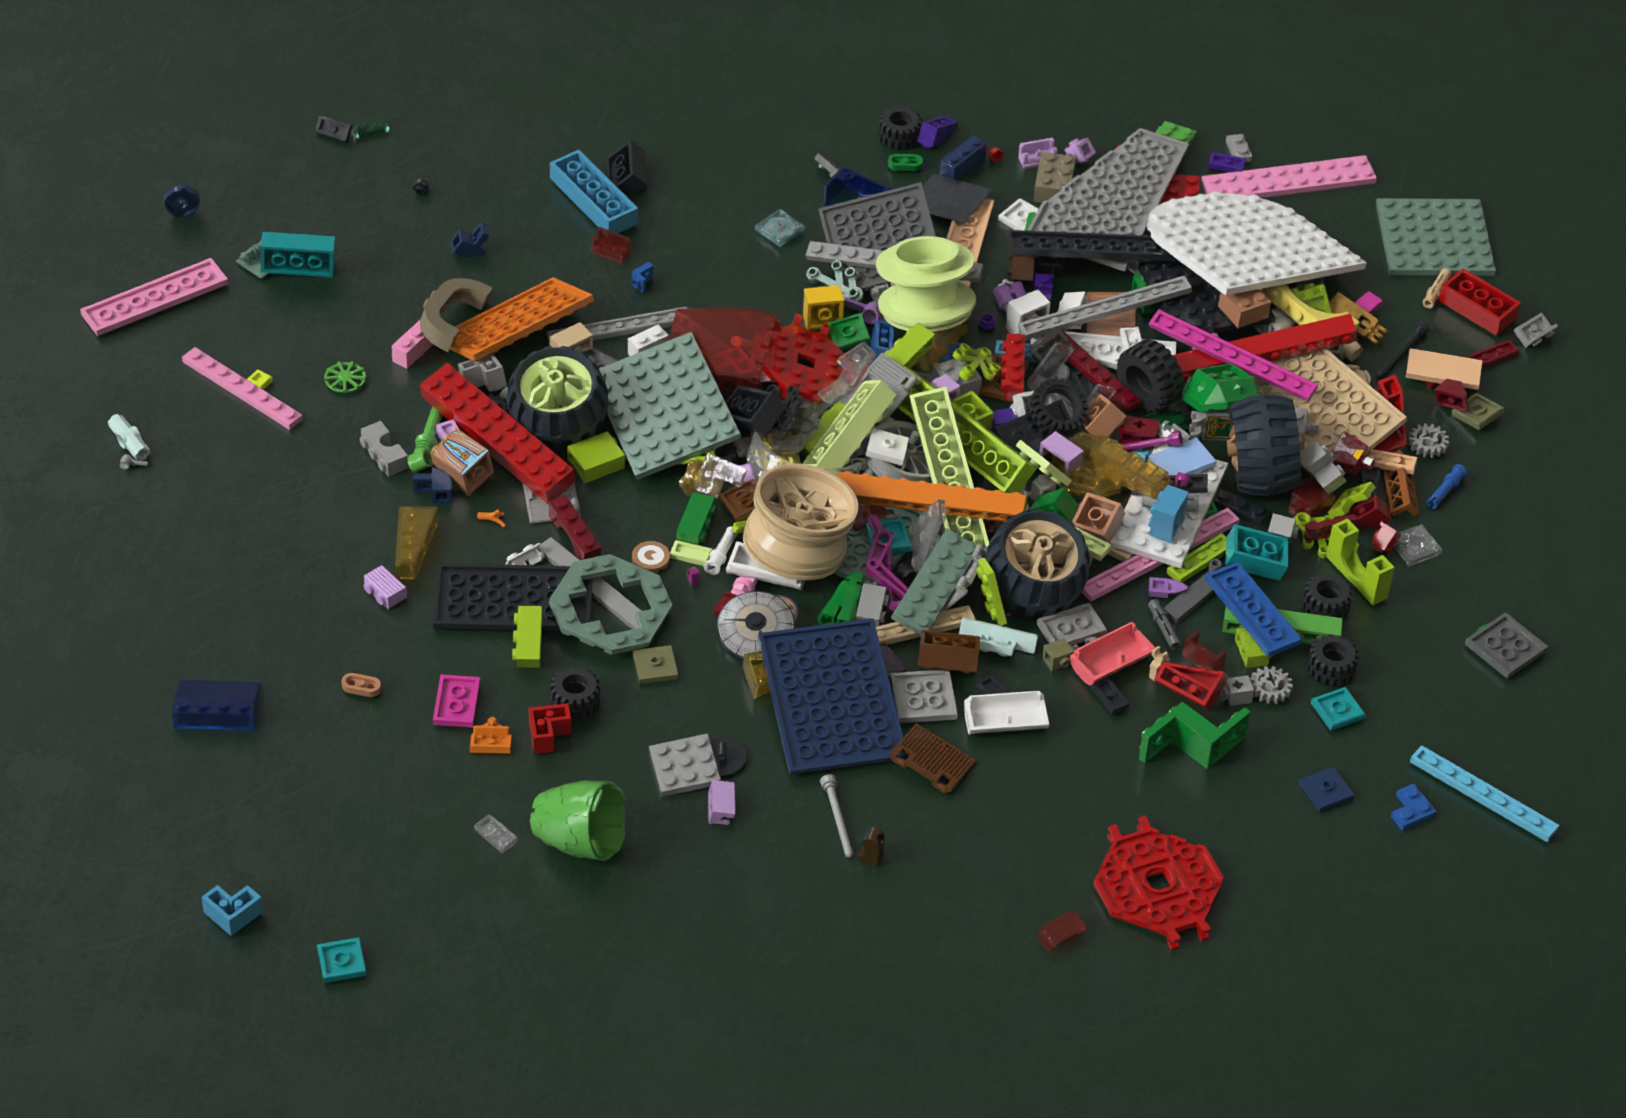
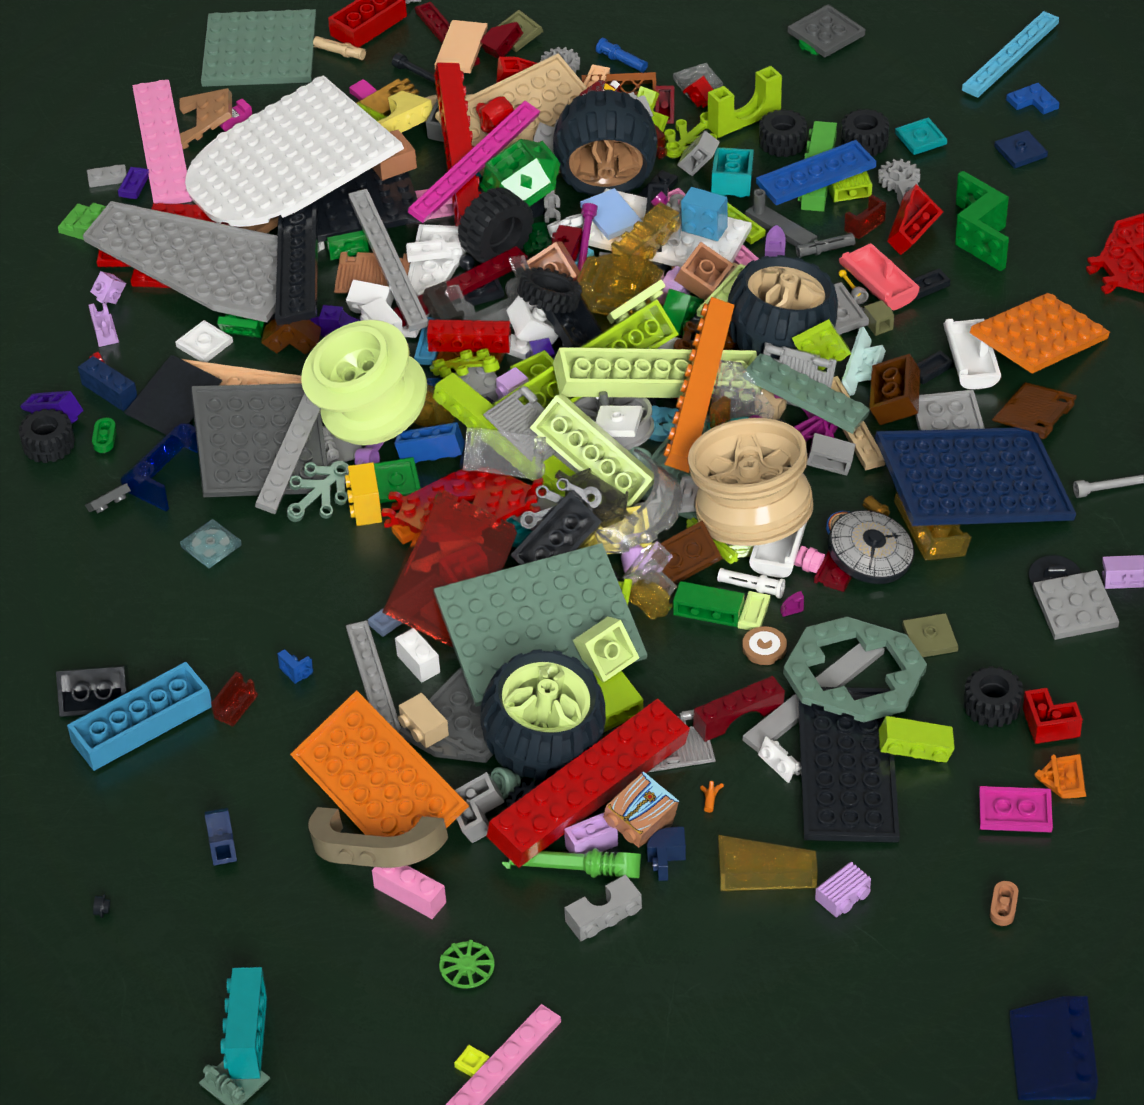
camera: 85 degrees left, 0 degrees up
(629, 439) = (606, 648): none -> yellowish green slope
(844, 602) = (834, 477): green piece -> none
(890, 513) = (720, 412): none -> clear orange plate
(1031, 765) = (1039, 332): none -> orange plate
(1052, 175) = (150, 310): dark tan brick -> none
(1063, 449) = (607, 292): lavender panel -> none
(1158, 660) = (886, 244): tan plate -> none
(1306, 367) = (493, 113): none -> red piece
(1316, 202) = (212, 111): none -> medium nougat wing
(1322, 529) = (688, 122): dark red hinge -> none
(1325, 221) = (239, 114): none -> dark pink leg

